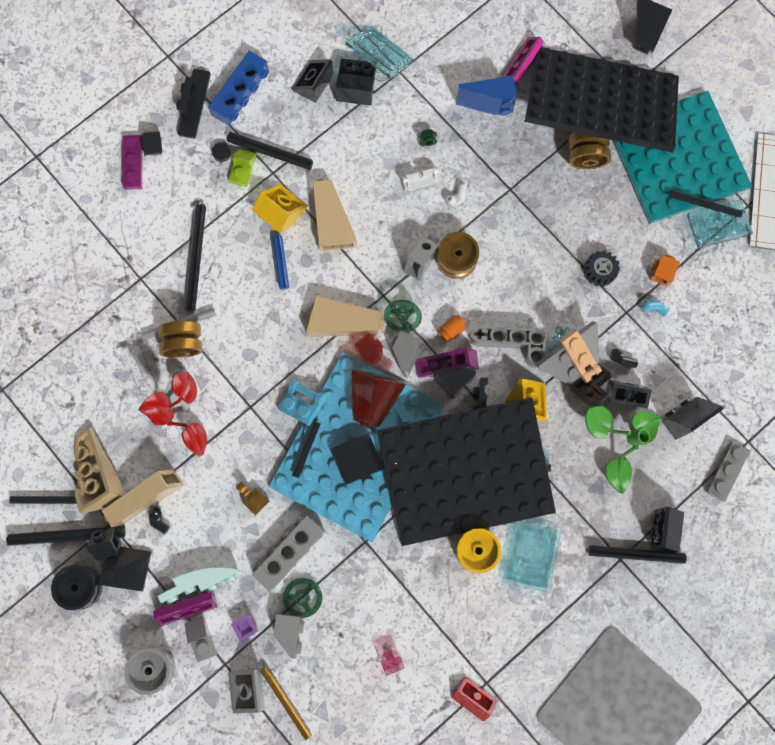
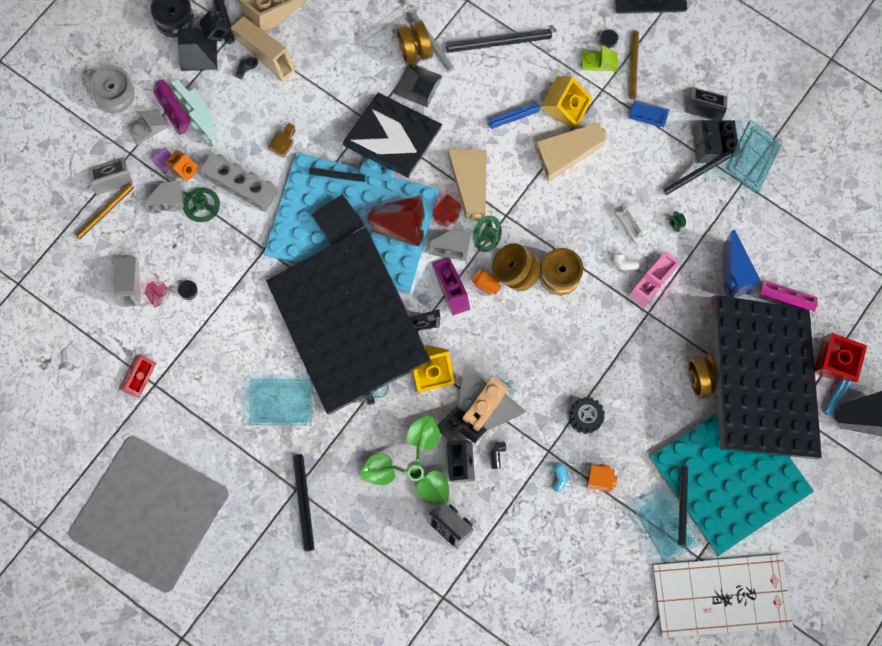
camera: 75 degrees right, 5 degrees down
(159, 411) = (338, 33): red plant -> none
(224, 347) = (418, 85): none -> black slope
(249, 65) = (674, 30): blue brick -> none
(257, 610) = (181, 165): none -> orange brick
(259, 137) = (634, 65): none -> pearl gold bar
(270, 150) = (623, 81): black axle -> none
(275, 384) = (392, 135): none -> black plate
(311, 134) = (649, 113): none -> blue plate
(372, 691) = (127, 281): none -> light grey slope
(385, 106) = (698, 172): none -> black bar
(393, 629) = (188, 290): none -> black tile
(421, 257) = (550, 236): light grey torso -> none
(447, 295) = (516, 267): none -> pearl gold wheel
(454, 381) = (431, 292): black slope -> none
(481, 173) = (654, 279): none -> bright pink slope
(489, 551) = (274, 336): yellow wheel -> none
(508, 342) = (488, 337): light grey beam -> none
(593, 32) = (840, 358): none -> red slope
(619, 42) = (836, 397): none -> medium azure axle
(666, 529) = (332, 524): black slope -> none
(728, 471) = (406, 580): light grey plate -> none

